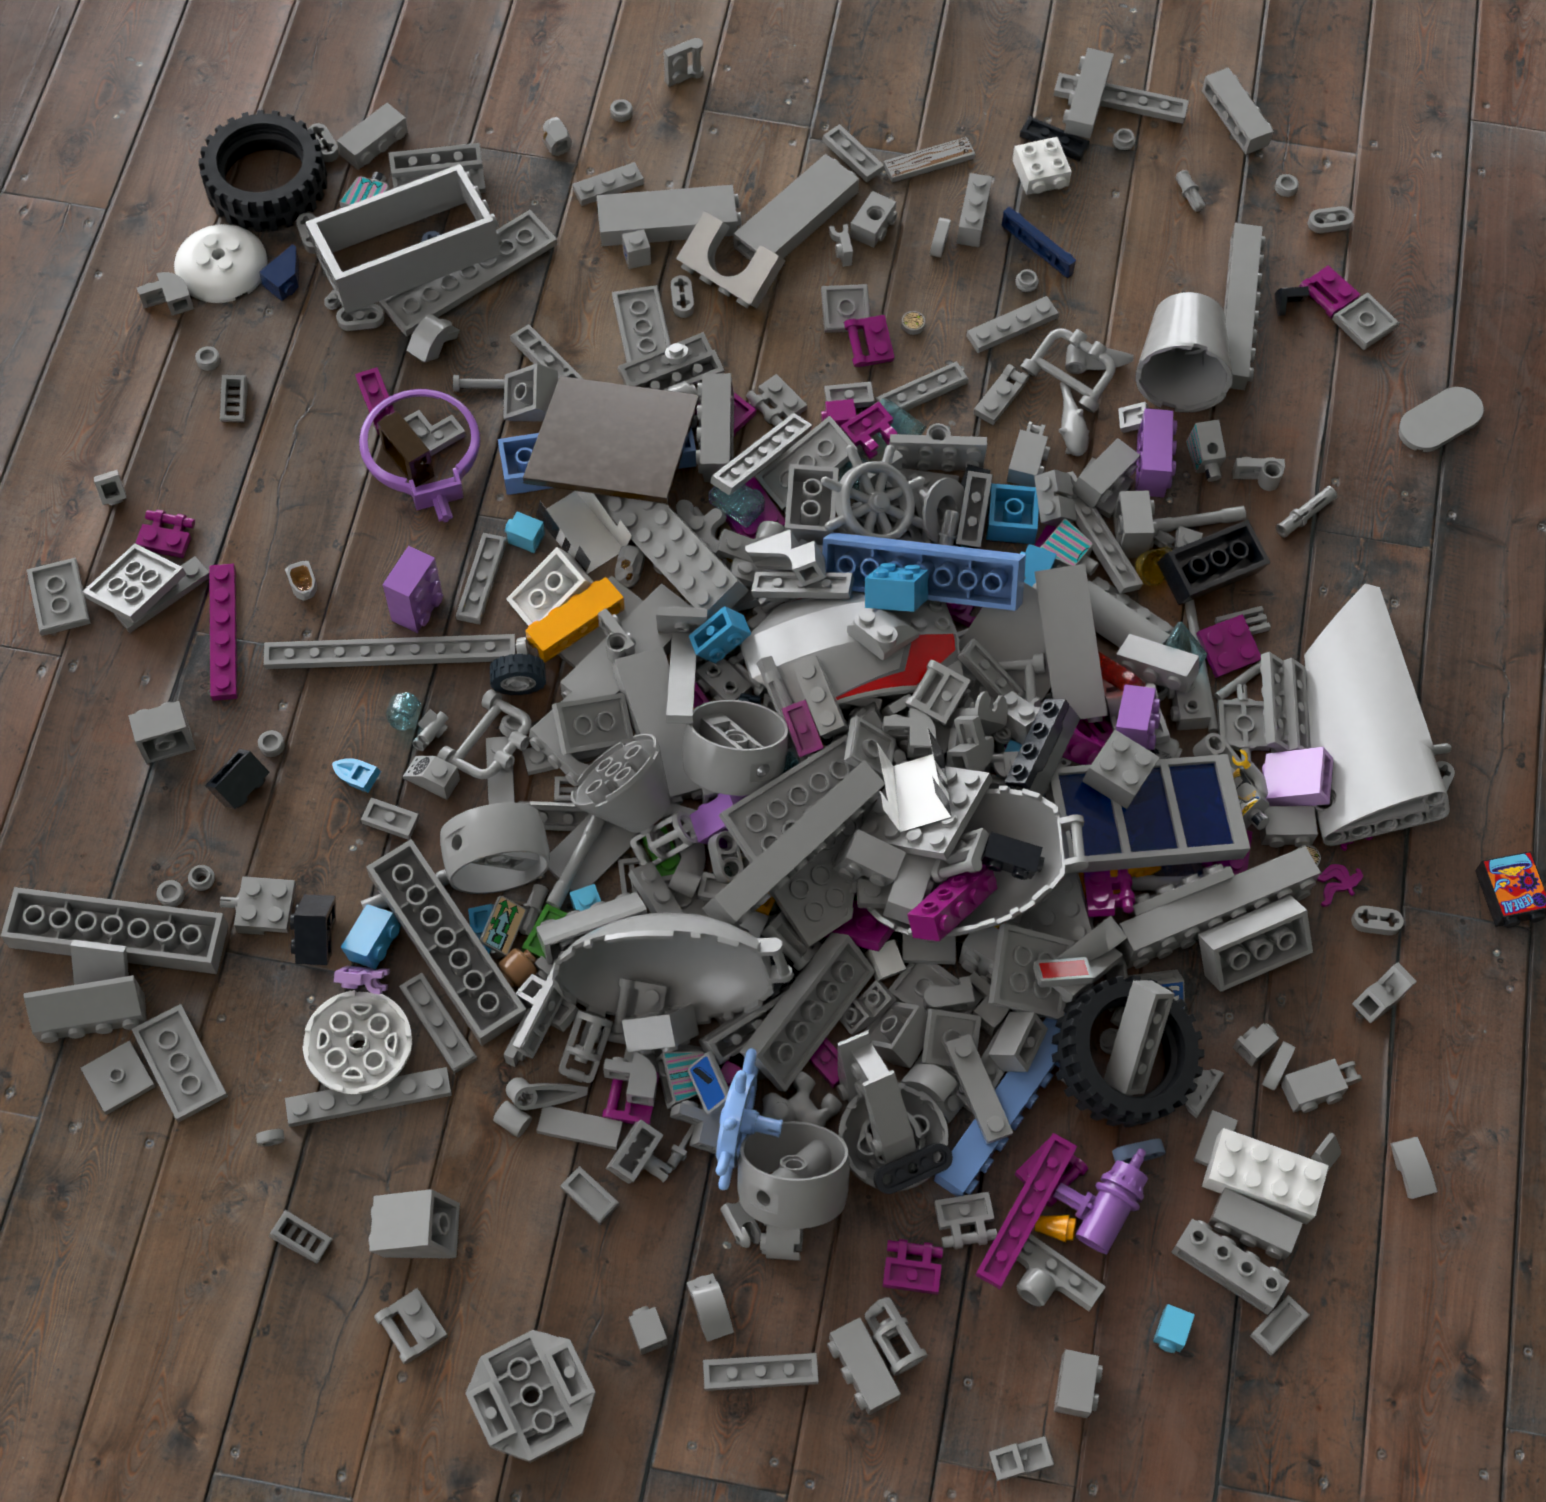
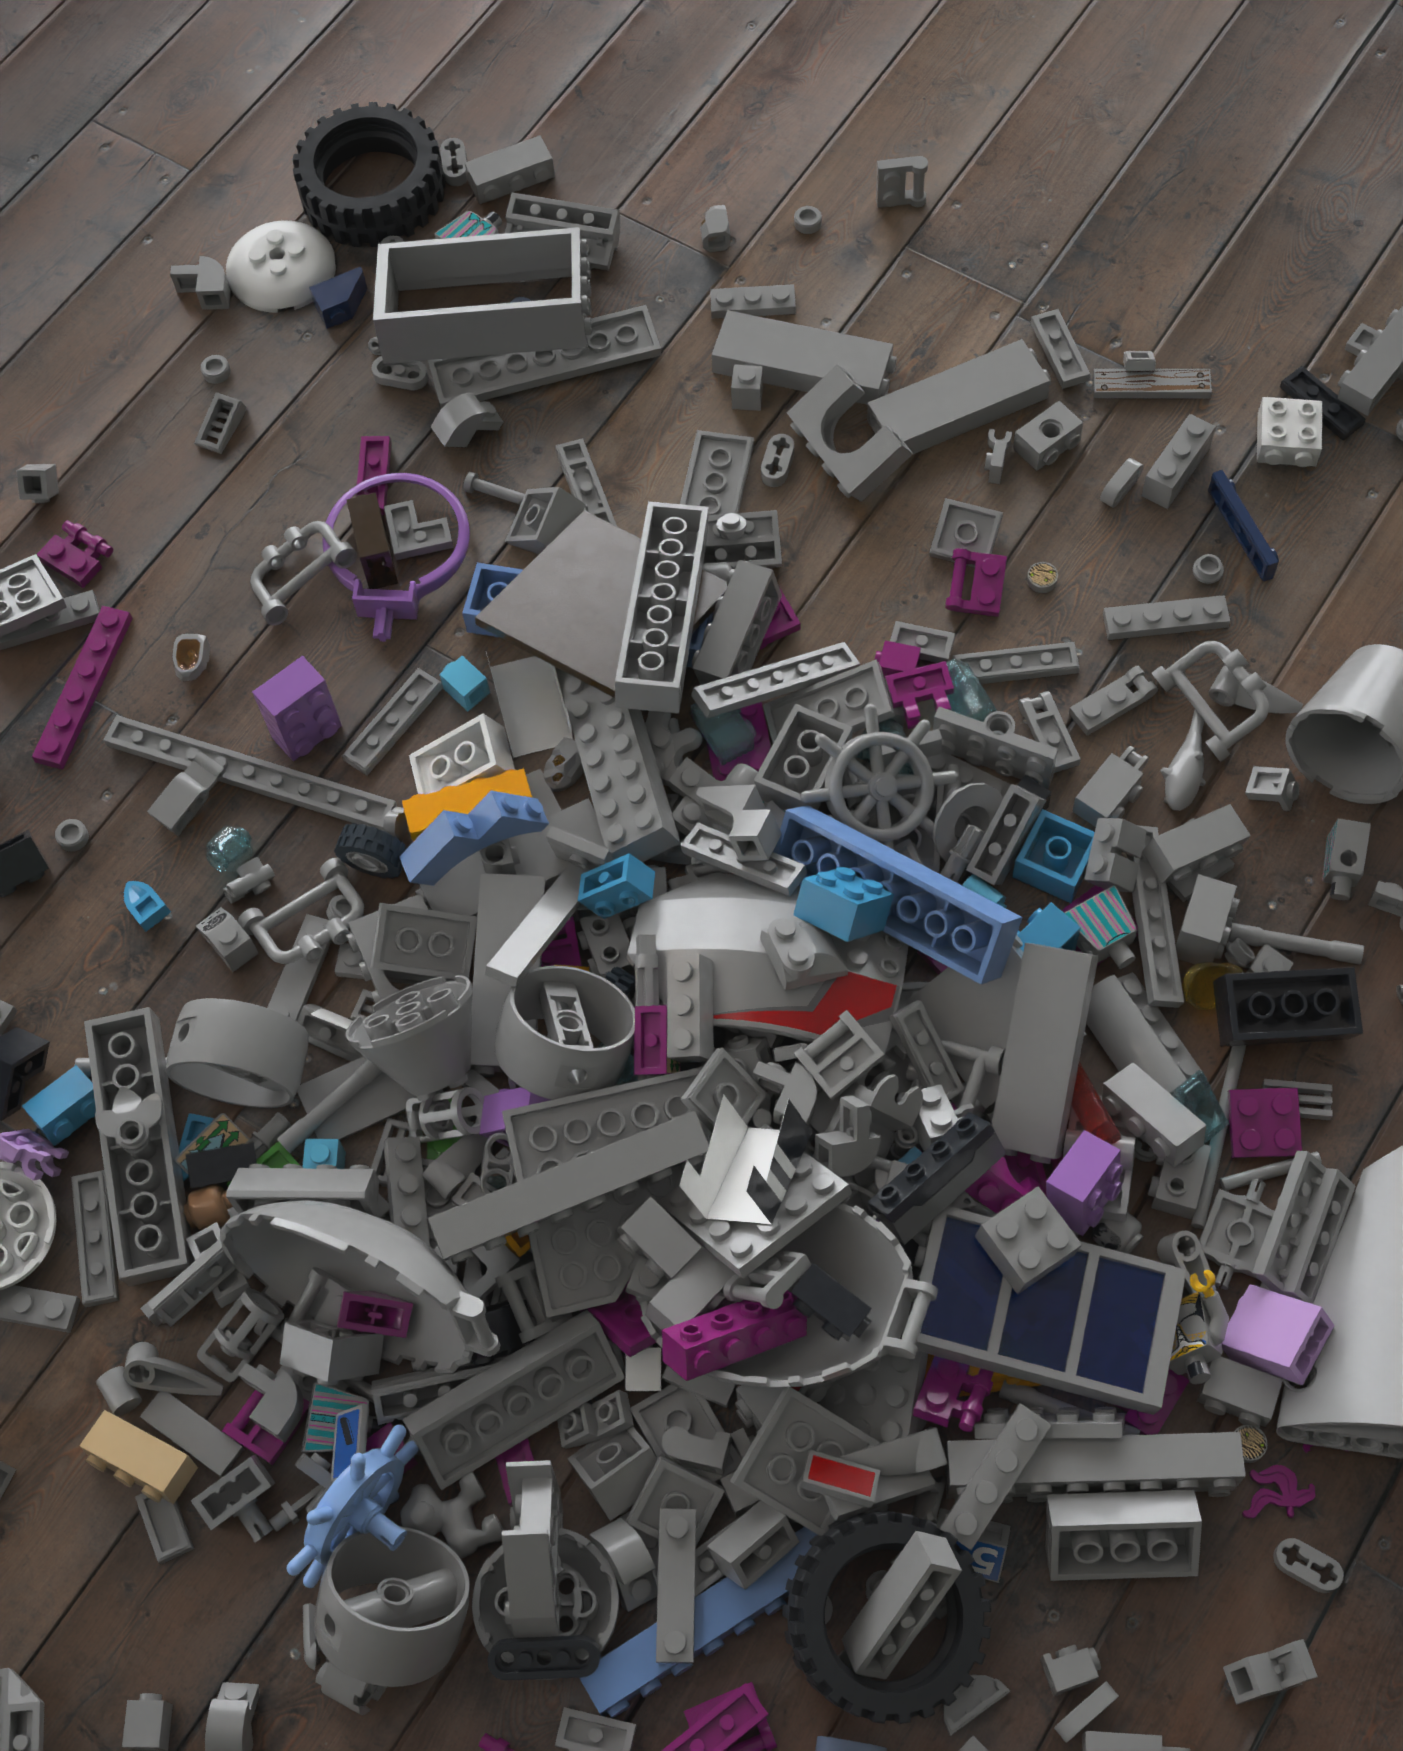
camera: 30 degrees right, 0 degrees up
(349, 524) = (274, 558): none -> light grey bar
(351, 681) = (186, 793): none -> light grey piece
(390, 818) = (156, 971): light grey plate -> none
(434, 919) = (130, 1113): none -> light grey plate
(515, 932) = (219, 1163): none -> black tile
(552, 1156) = (138, 1458): none -> tan brick
(588, 636) = (459, 835): none -> medium blue arch
(663, 425) = (662, 608): none -> light grey brick
(683, 990) = (374, 1313): none -> magenta slope
(780, 397) = (840, 619): light grey plate -> none
(914, 145) = (1139, 361): none -> light grey tile
(965, 425) = (1050, 729): none -> light grey plate
(1156, 452) = (1274, 839): medium lavender brick -> none
(1162, 931) = (995, 1476): none -> light grey plate

